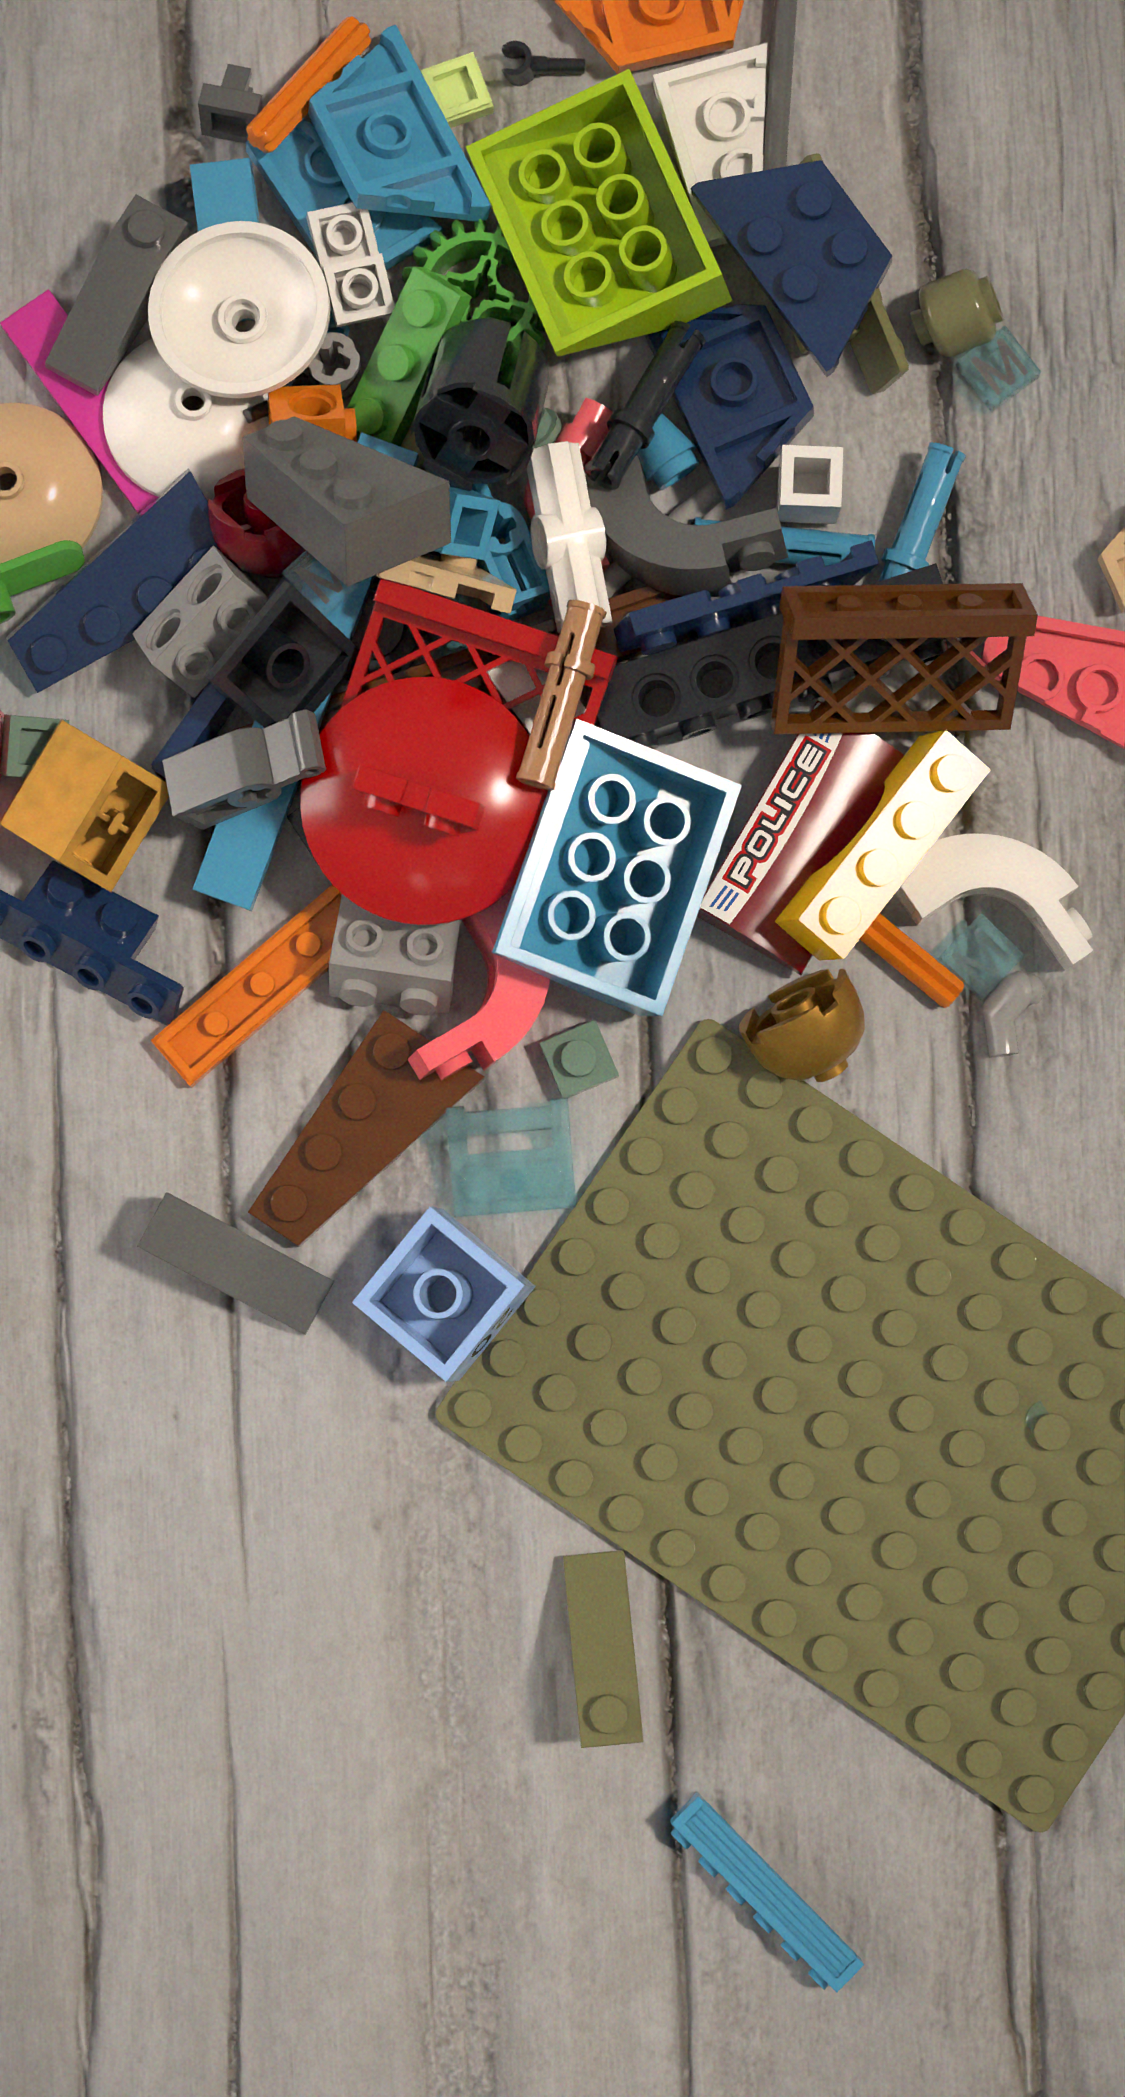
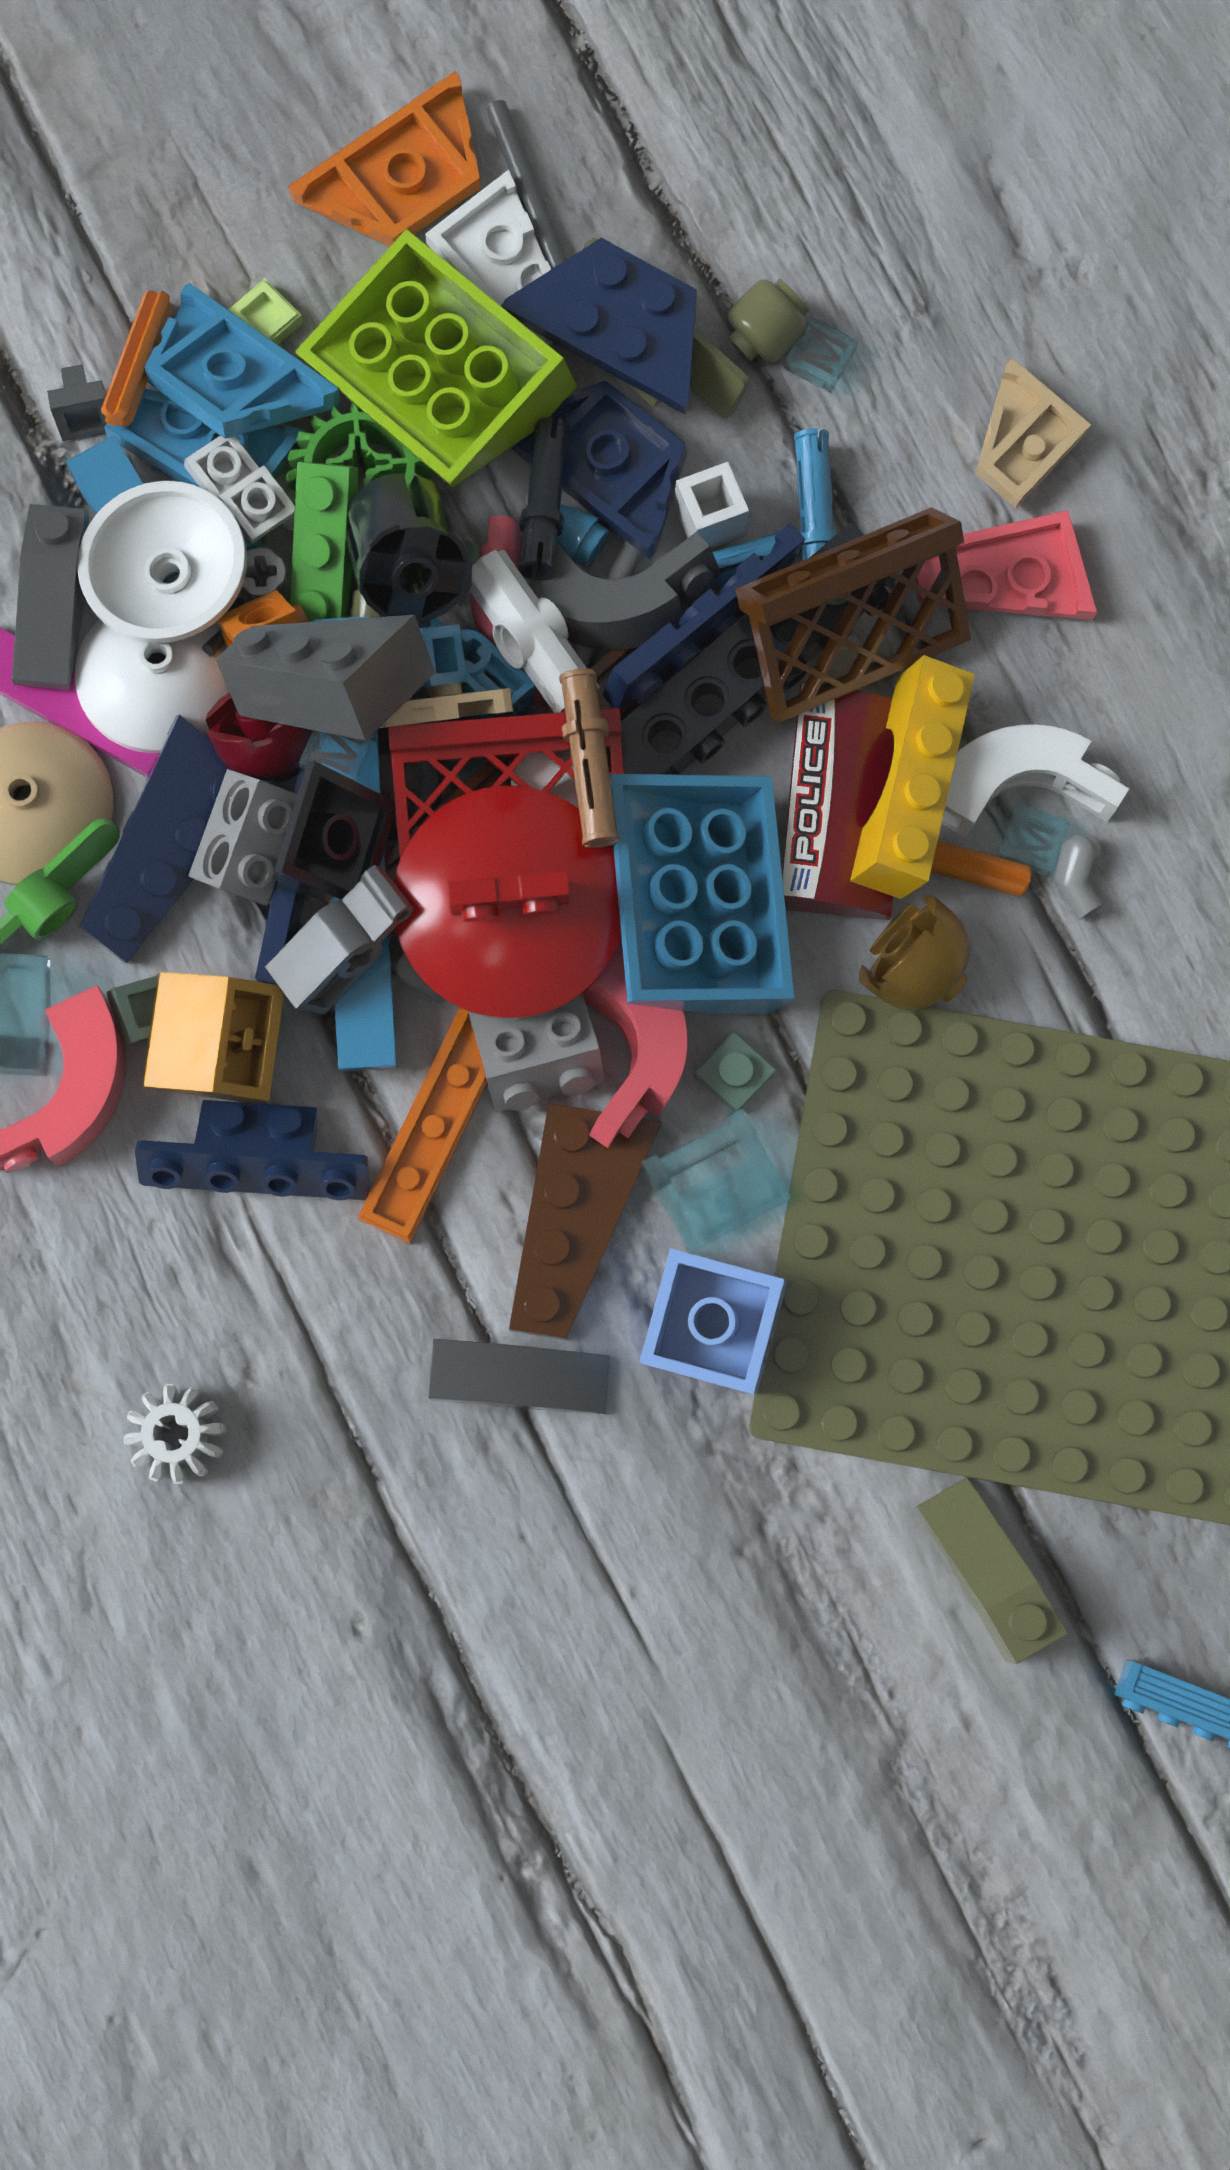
camera: 30 degrees left, 5 degrees down
(536, 64) = (315, 280): black hand -> none

